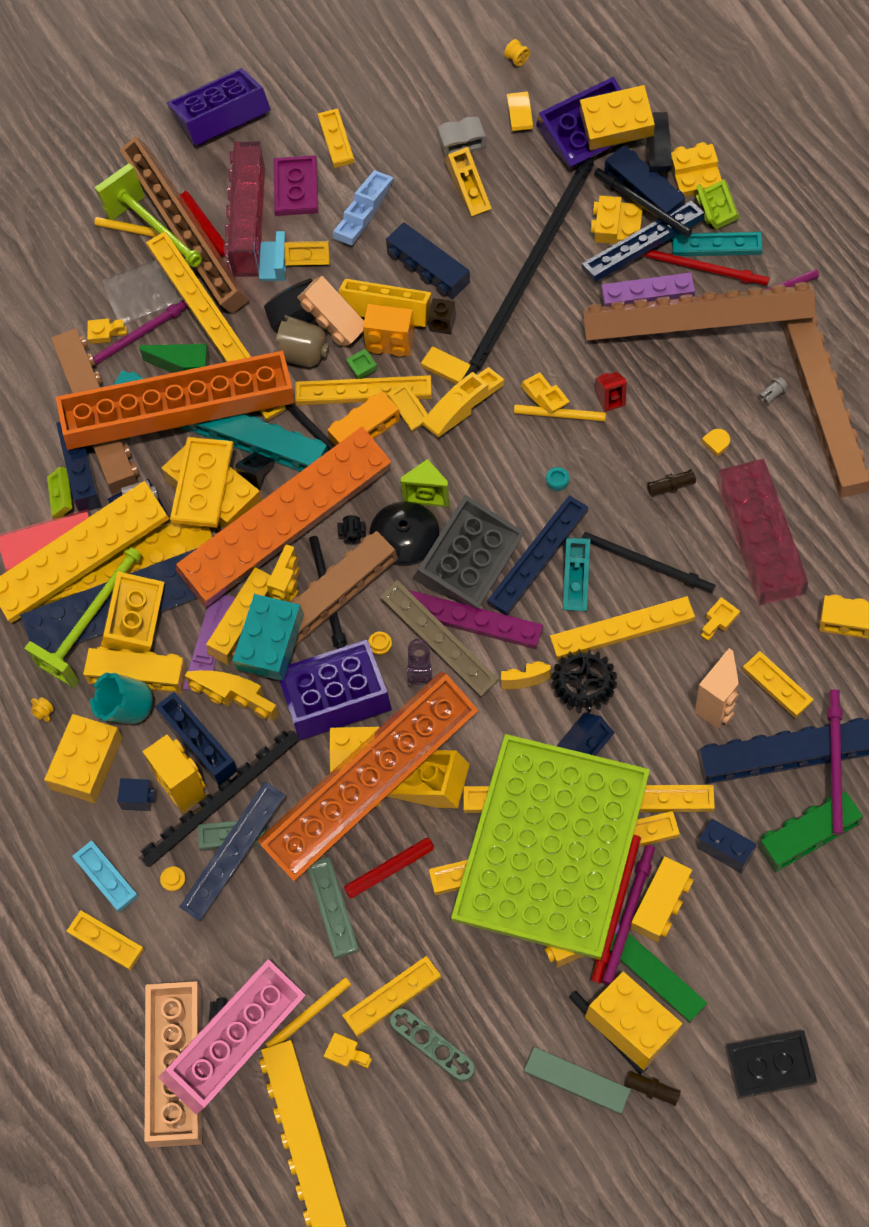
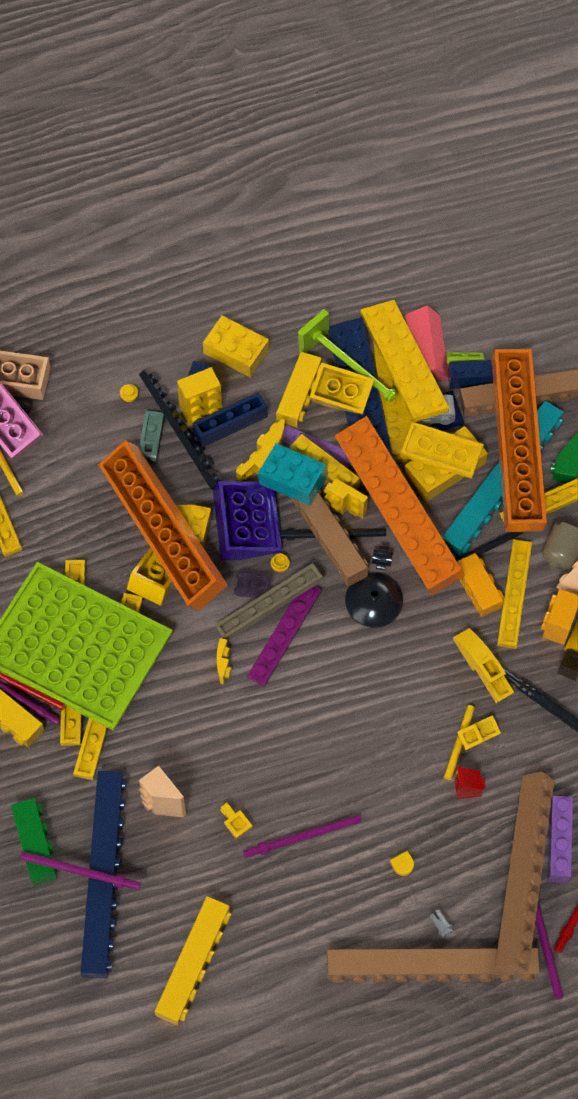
camera: 95 degrees right, 0 degrees up
(41, 708) = (283, 325): yellow plate -> none
(105, 876) = (142, 350): medium azure plate -> none
(105, 940) = (95, 344): yellow plate -> none
(121, 699) = (271, 373): teal cylinder -> none
(232, 851) = (134, 430): dark blue plate -> none
(254, 468) = (454, 495): black slope -> none
(332, 908) = (76, 493): sand green tile -> none
(361, 364) = (538, 594): bright green plate -> none
(389, 867) = (96, 536): red axle -> none
(408, 405) = (489, 622): yellow tile -> none
(425, 486) = (407, 617): lime slope -> none
(445, 365) = (525, 660): yellow tile -> none
(469, 553) = (338, 639): dark grey slope -> none
(537, 555) = (327, 694): dark blue plate -> none
(557, 479) = (396, 726): teal tile -> none
(574, 678) = (194, 696): black gear -> none
(576, 574) = (304, 719): teal slope -> none
(587, 735) = (159, 694): dark blue panel -> none
(623, 627) = (247, 746): yellow plate -> none
(671, 482) = (370, 814): dark brown pin -> none
(691, 579) = (277, 808): black bar -> none
(726, 845) = (40, 774): dark blue brick -> none
(740, 581) = (264, 848): none -> magenta bar
(762, 532) = (304, 874): clear pink brick -> none
(777, 684) = (165, 851): yellow plate -> none

